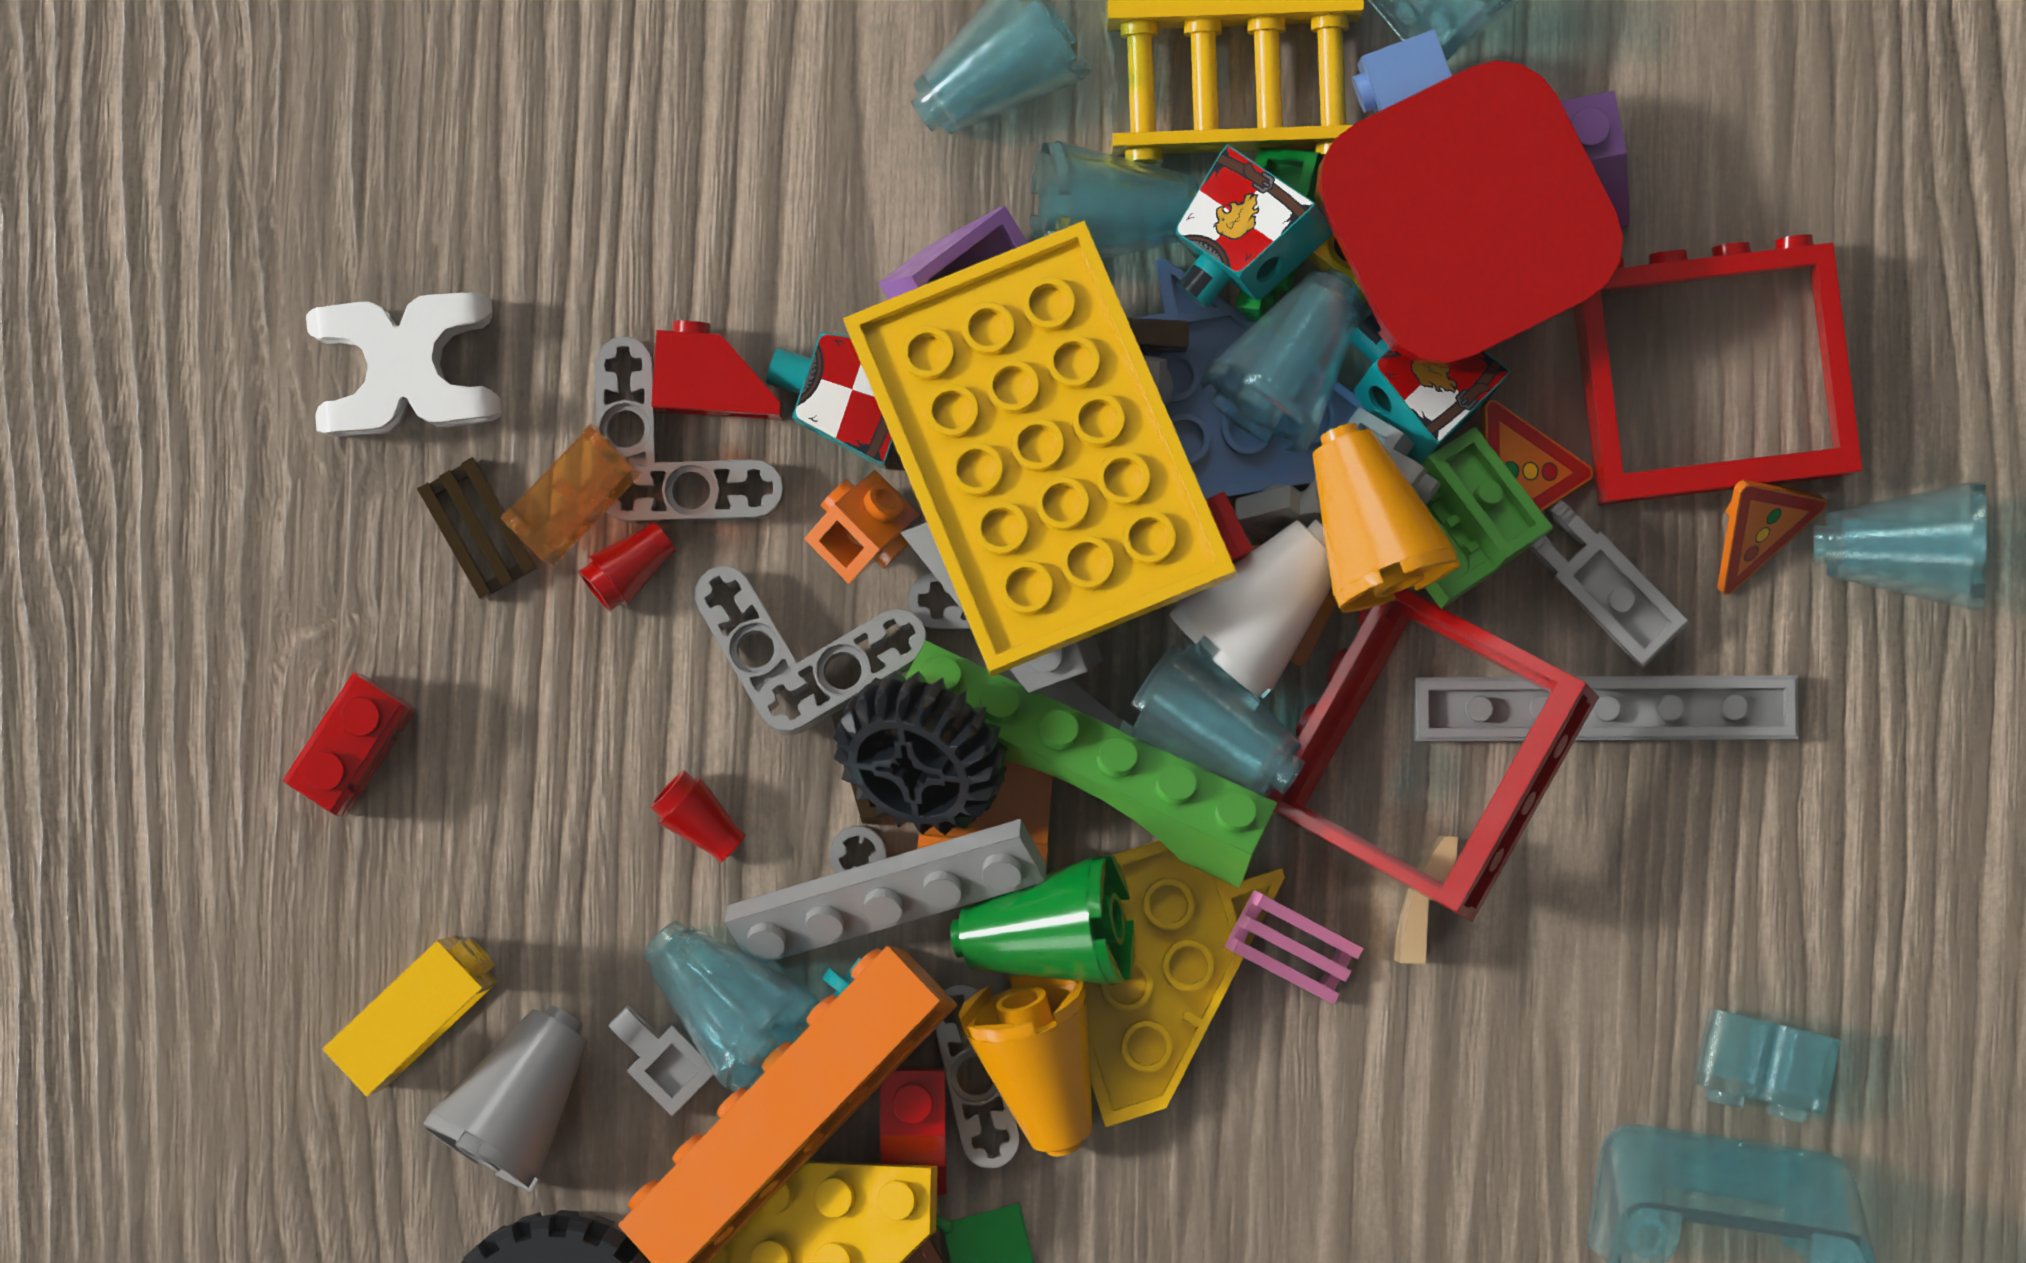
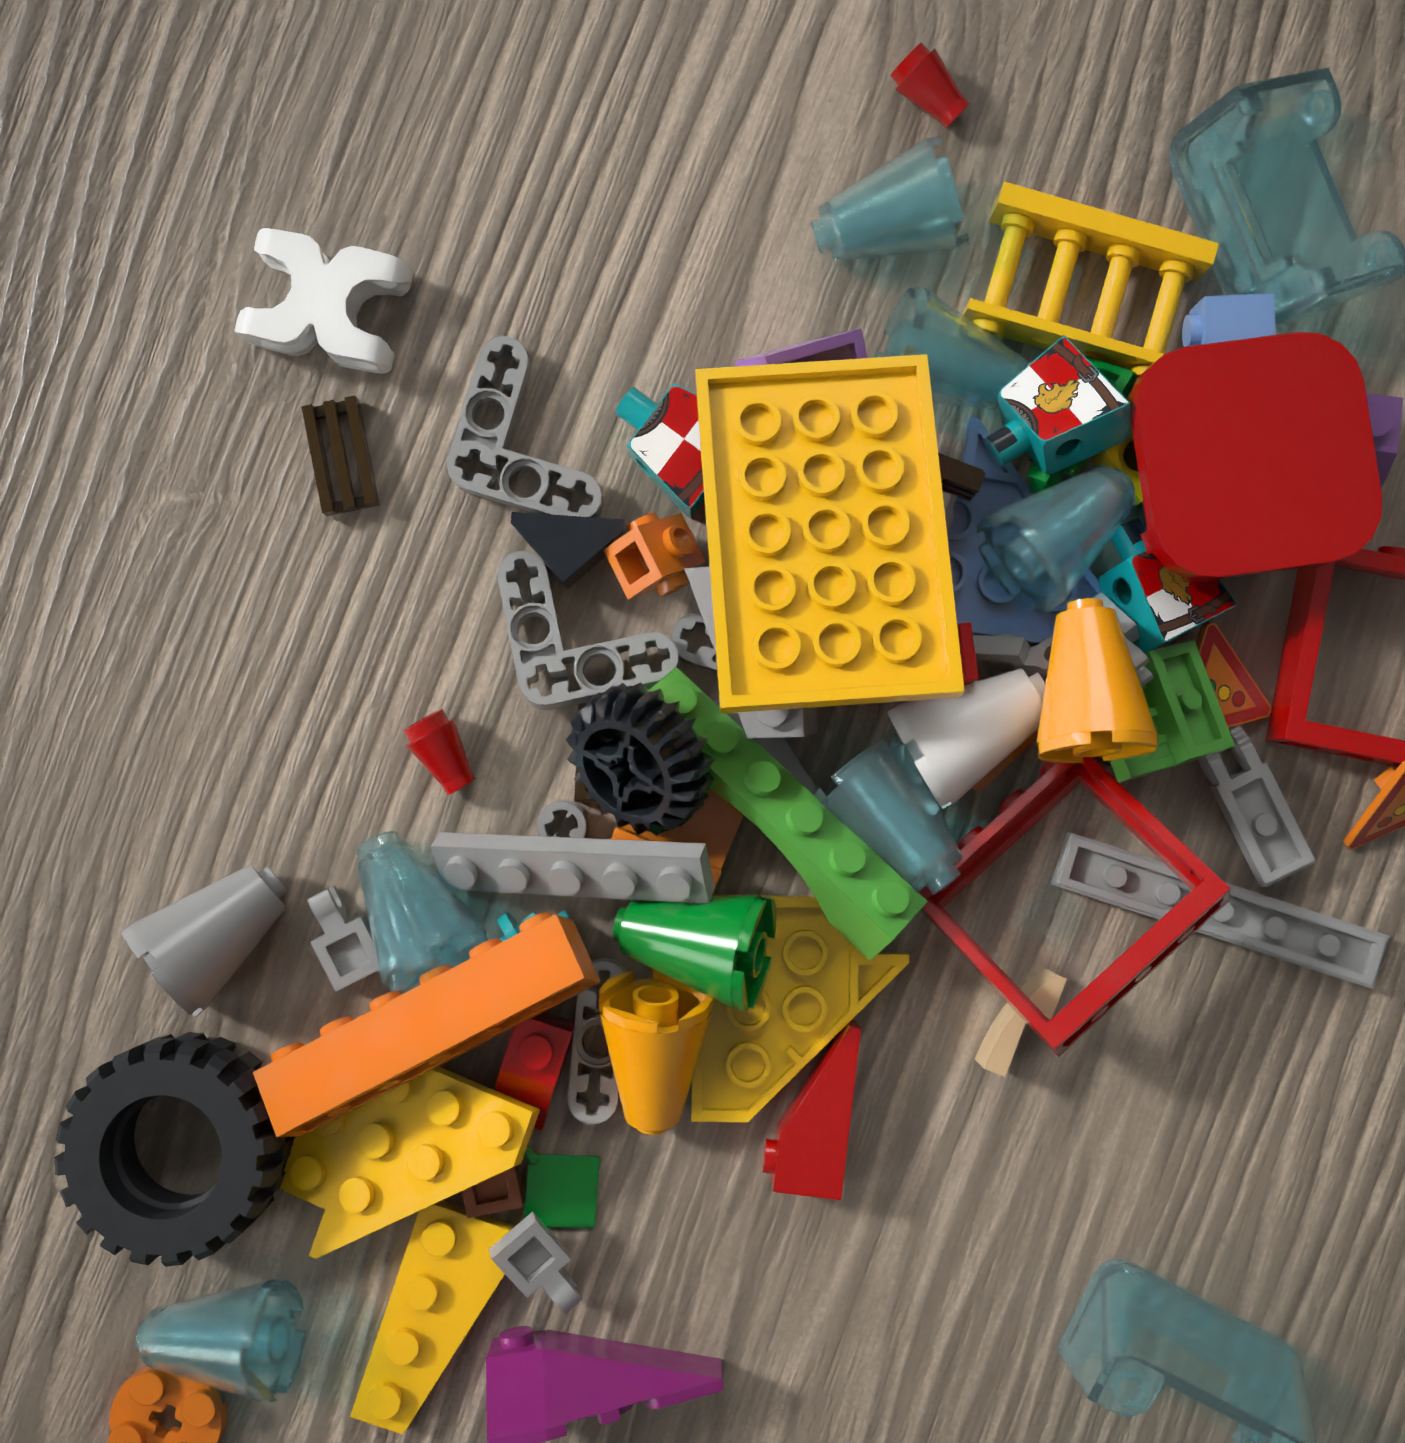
camera: 25 degrees right, 0 degrees up
(349, 744) = (172, 596): red brick -> none
(412, 1013) = (143, 836): yellow window -> none
(571, 495) = (423, 452): clear orange hinge -> none
(626, 566) = (451, 525): red cone -> none
(706, 377) = (567, 392): red slope -> none
(762, 543) = (568, 543): none -> black slope
(1242, 1092) = (815, 1127): none -> red slope
(1334, 969) = (924, 1050): bright pink tile -> none
(1765, 1063) = (1260, 1251): clear light blue brick -> none

